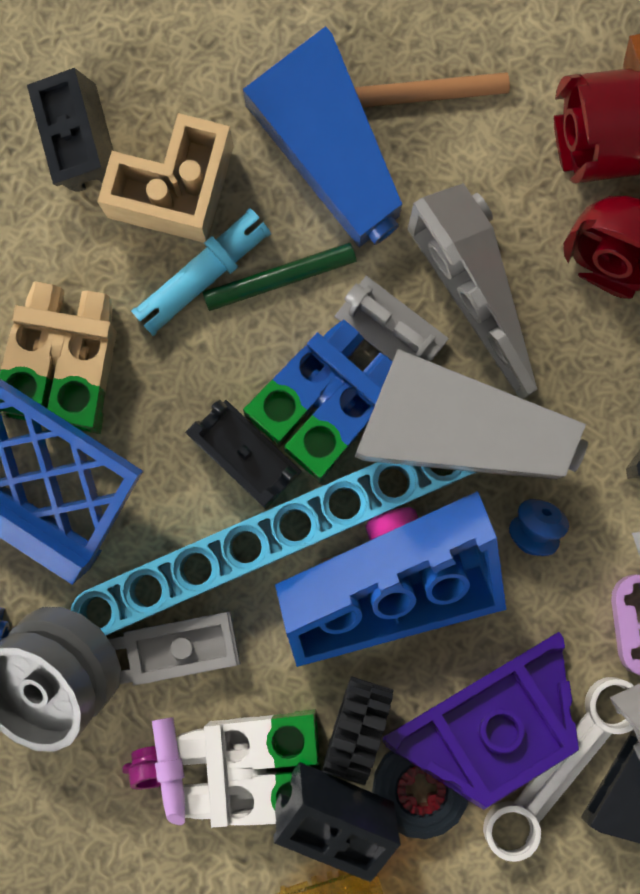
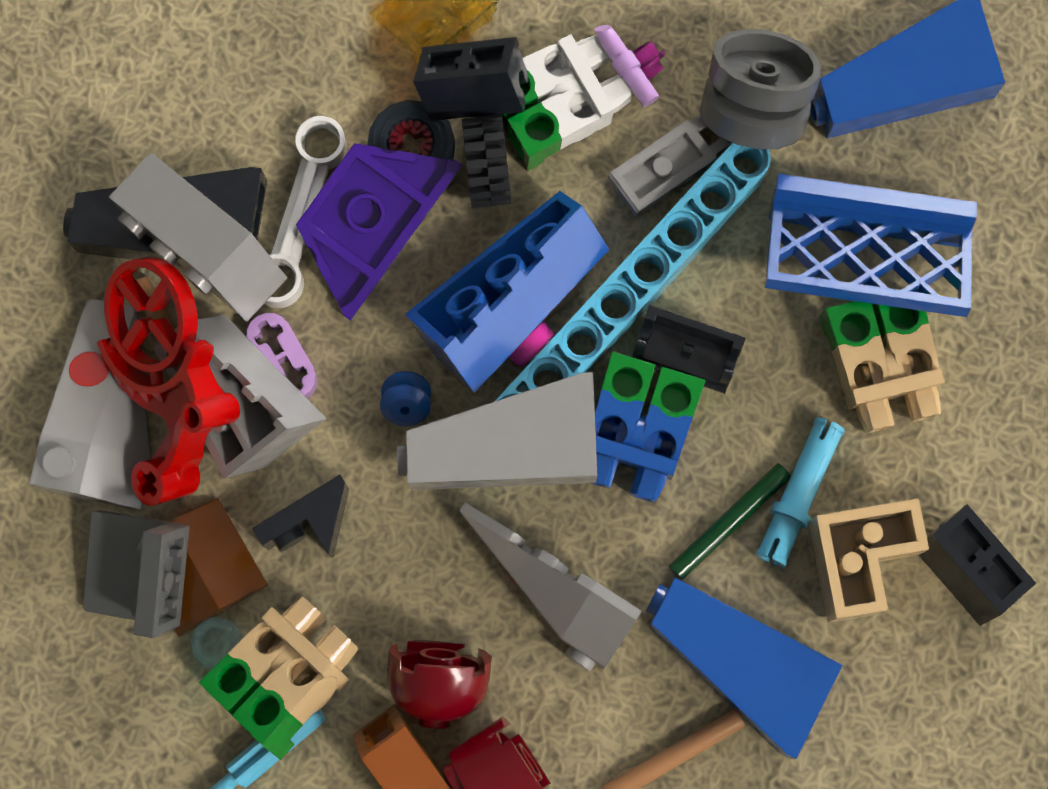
camera: 155 degrees right, 5 degrees down
(389, 323) = (610, 519): light grey hinge -> none

